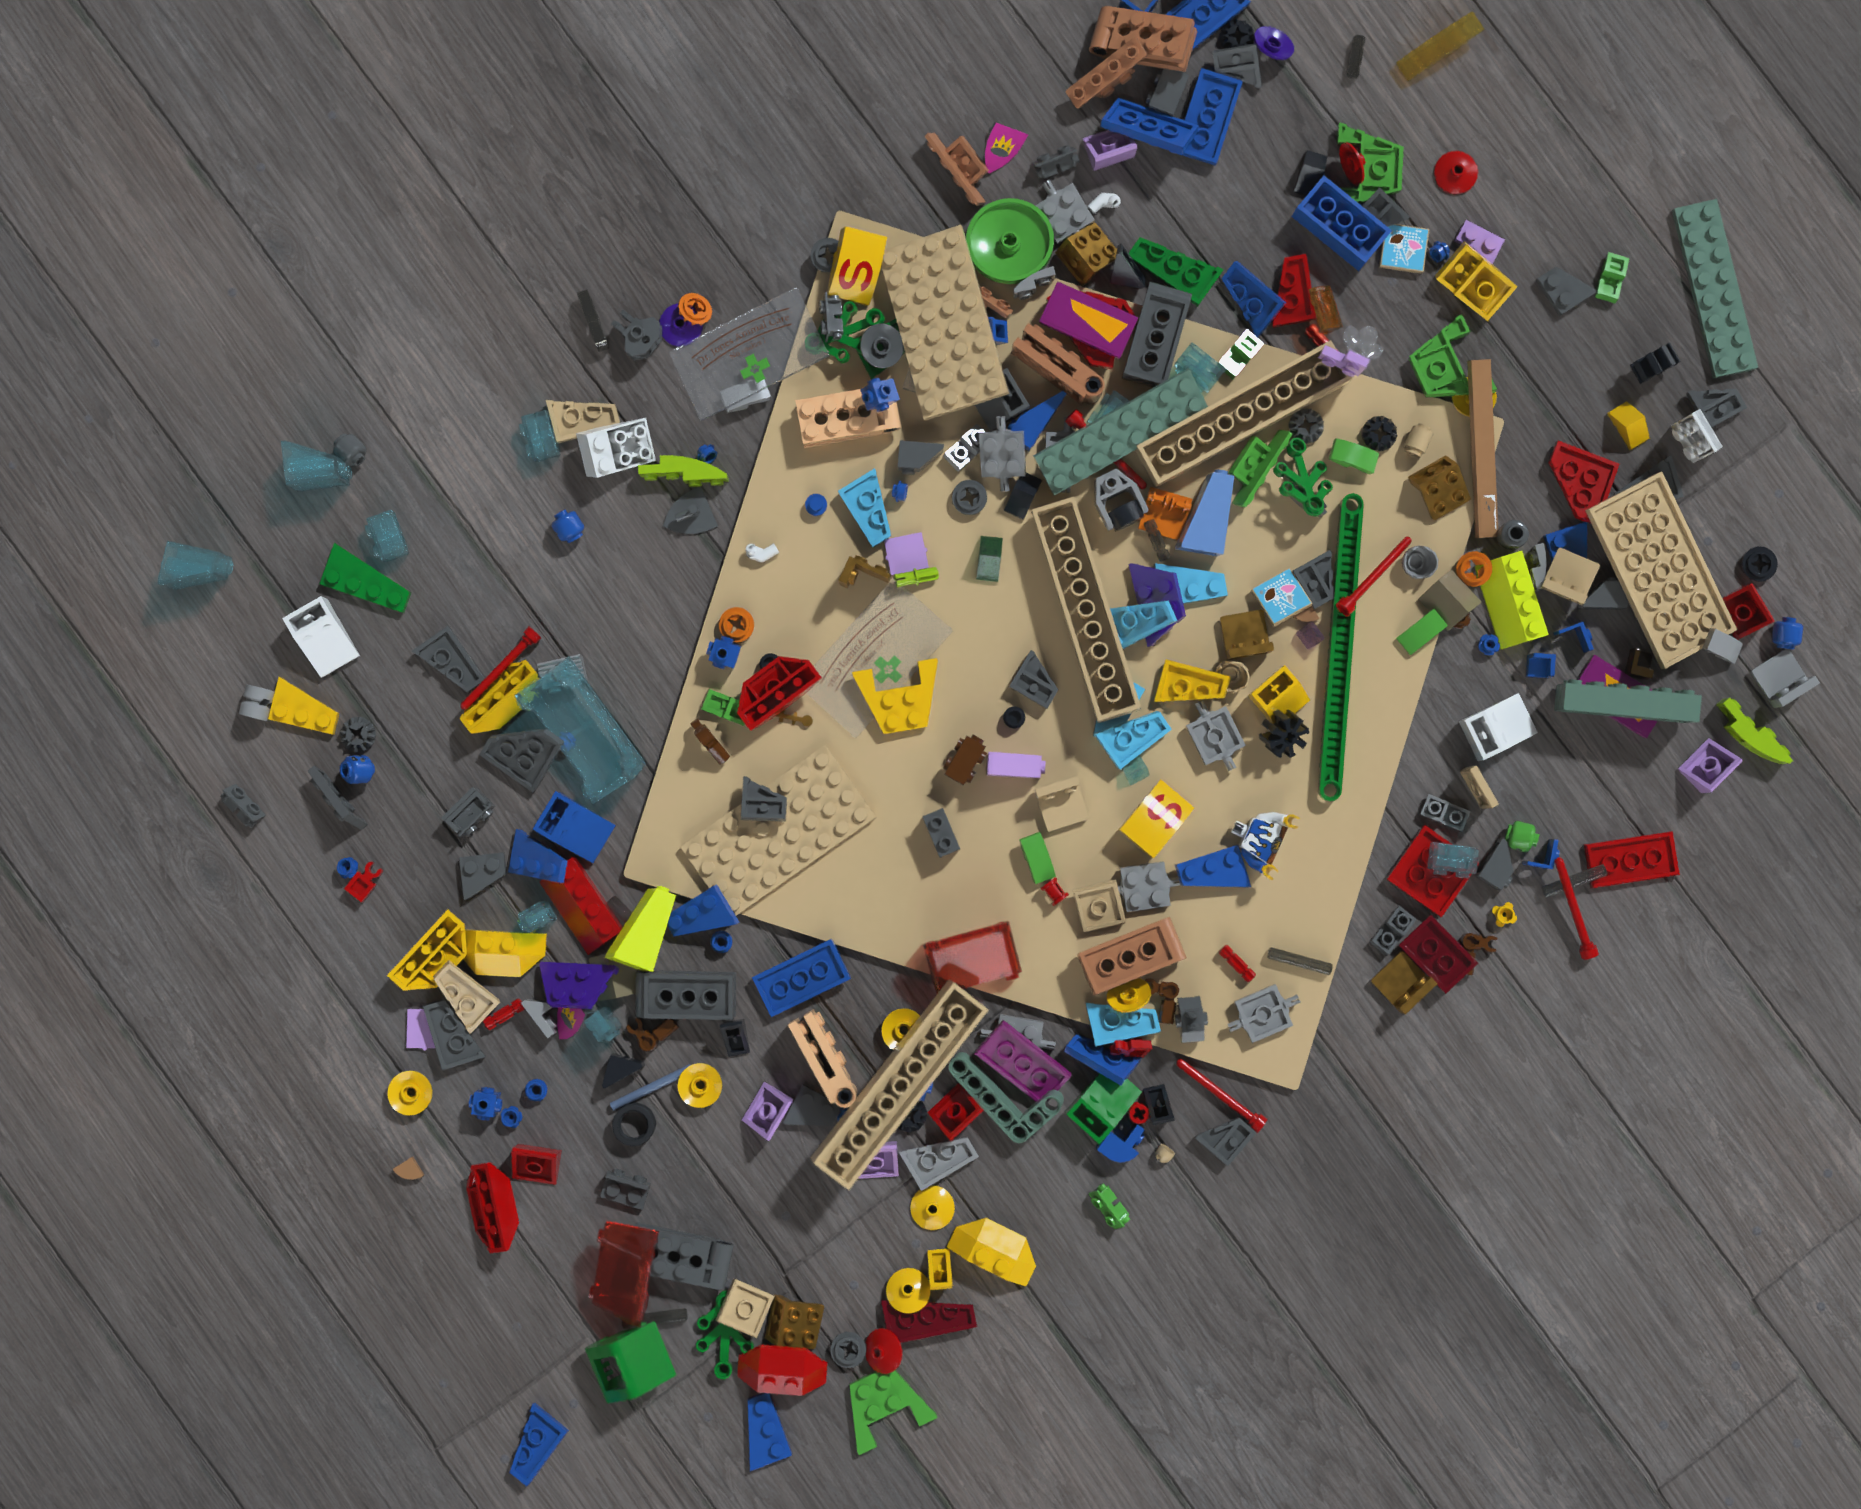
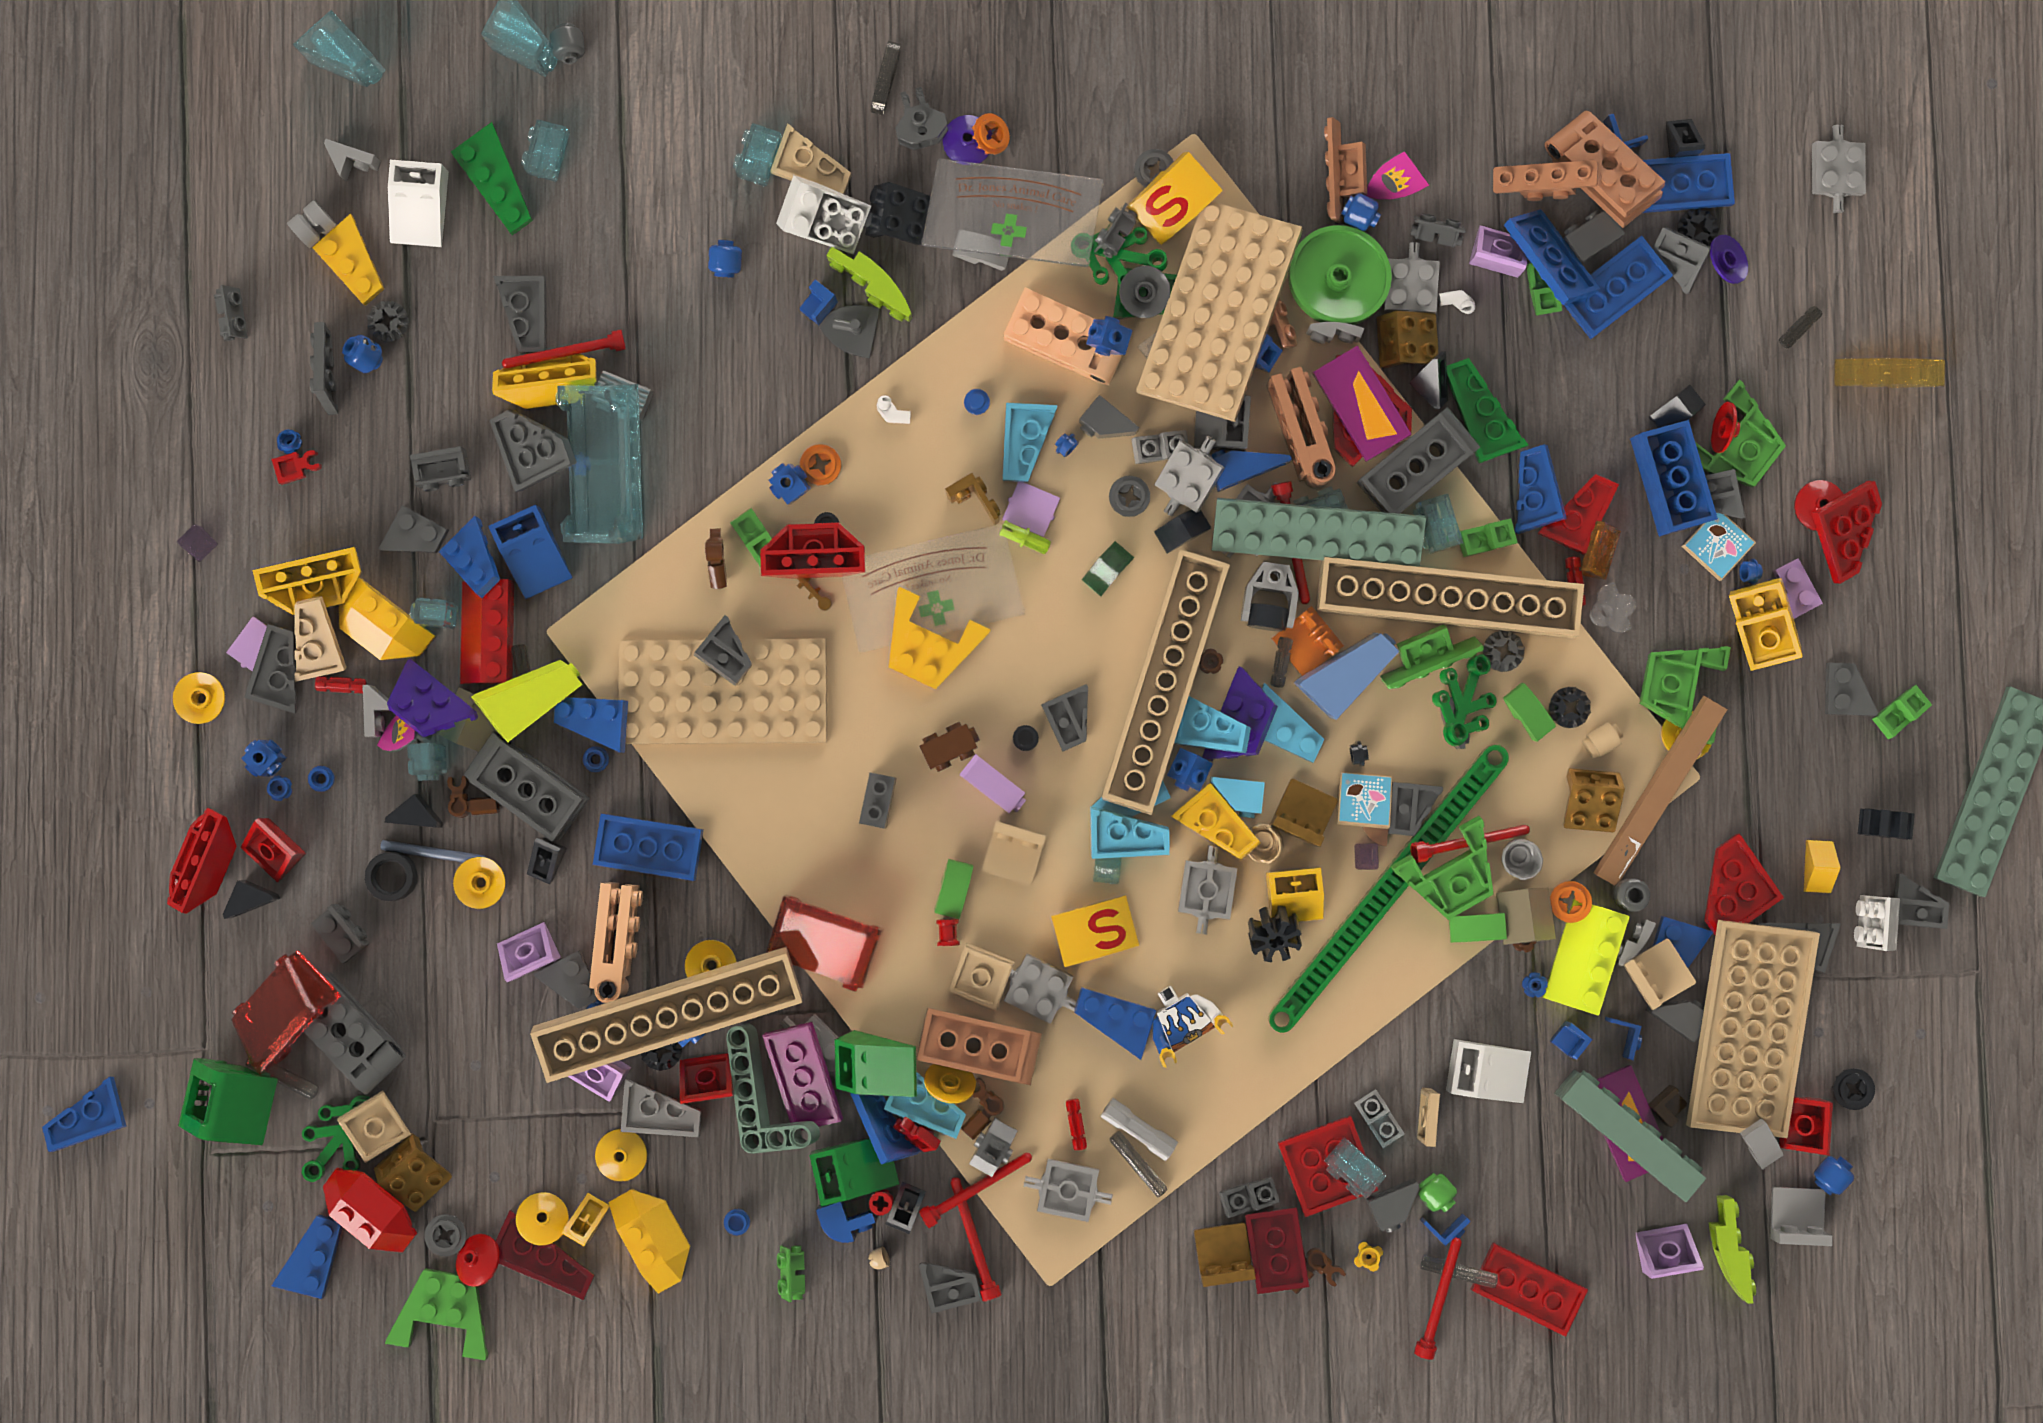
camera: 35 degrees right, 0 degrees up
(246, 638) = (345, 156): none -> light grey slope
(331, 984) = (197, 542): none -> clear purple slope
(409, 1169) = (148, 771): medium nougat tile -> none
(542, 1209) = (247, 897): none -> black slope
(655, 511) = (819, 302): none -> blue panel
(667, 410) = (897, 213): none -> black bracket
(706, 453) = (906, 281): blue plate -> none
(993, 186) = (1361, 212): none -> blue head
(1046, 1197) = (736, 1222): none -> blue plate
(1069, 1019) = (875, 1065): none -> slope
(1111, 570) = (1217, 661): none -> reddish brown plate
(1145, 660) = (1189, 770): none -> blue brick
(1160, 157) = (1542, 296): none -> bright green slope
(1180, 1096) = (933, 1213): none -> red piece
(1193, 652) = (1241, 795): none -> medium azure slope
(1255, 567) = (1359, 753): none -> black plate
(1267, 936) = (1123, 1118): none -> light grey axle
(1351, 363) = (1586, 619): lavender plate -> none
(1387, 607) = (1458, 882): none -> bright green wing
(1485, 175) = (1847, 529): none -> red plate

